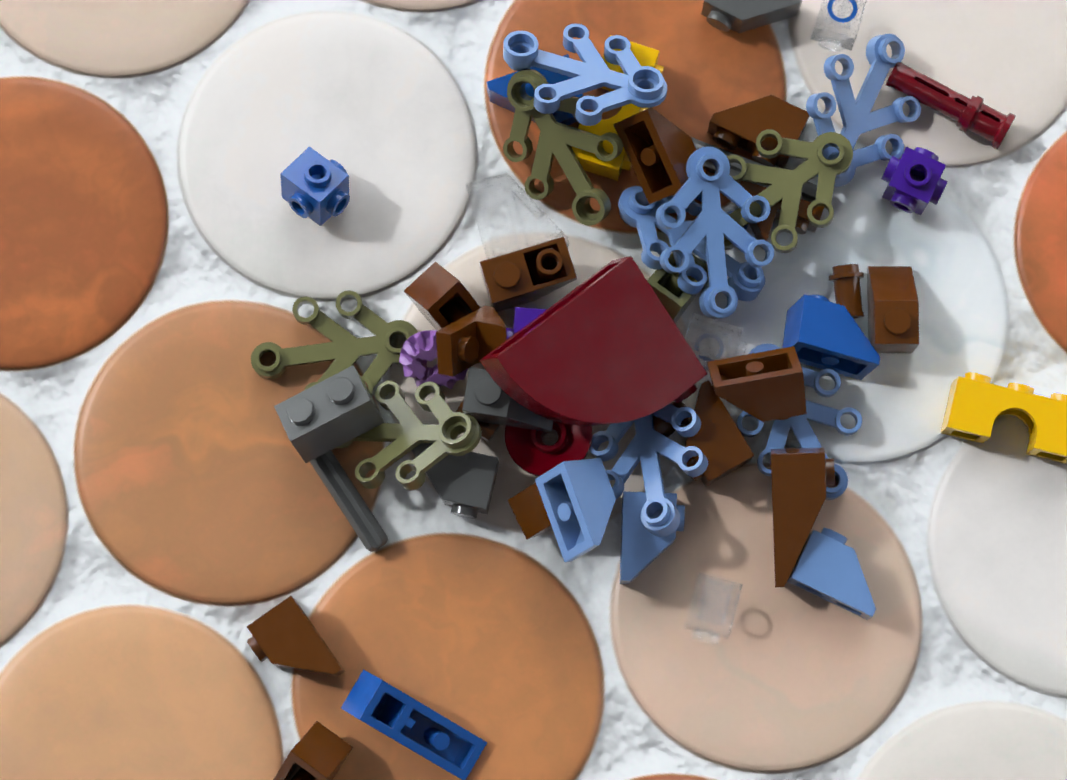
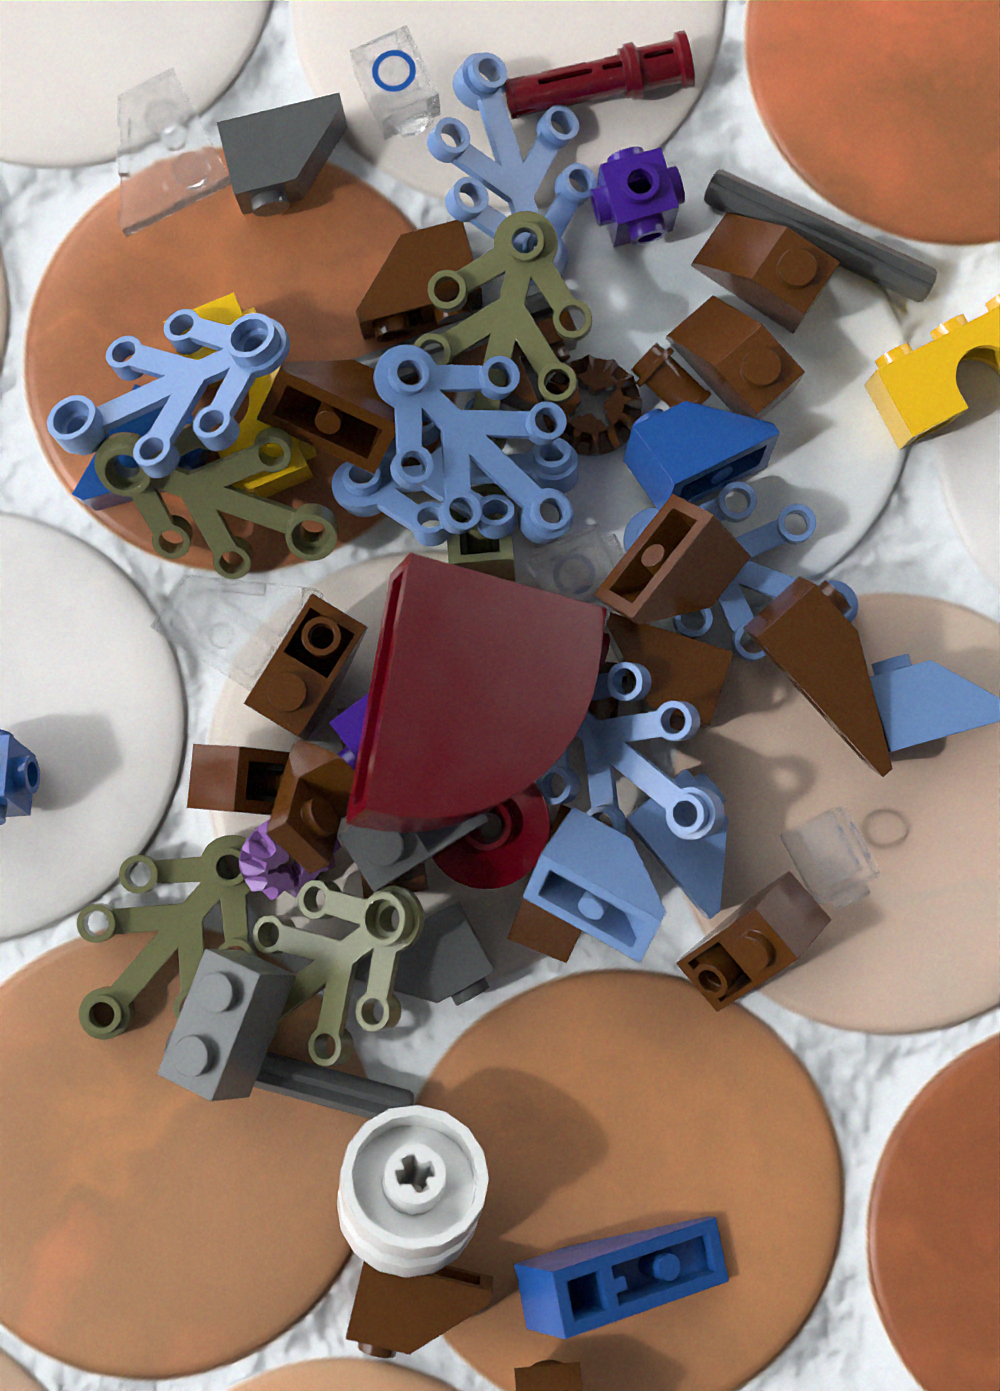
camera: 40 degrees left, 5 degrees up
(346, 581) = (377, 1197): none -> white wheel
(633, 615) = (755, 942): none -> reddish brown slope
(810, 283) = (621, 409): none -> reddish brown gear
(951, 276) = (766, 267): none -> reddish brown slope
(996, 284) = (847, 246): none -> dark grey axle

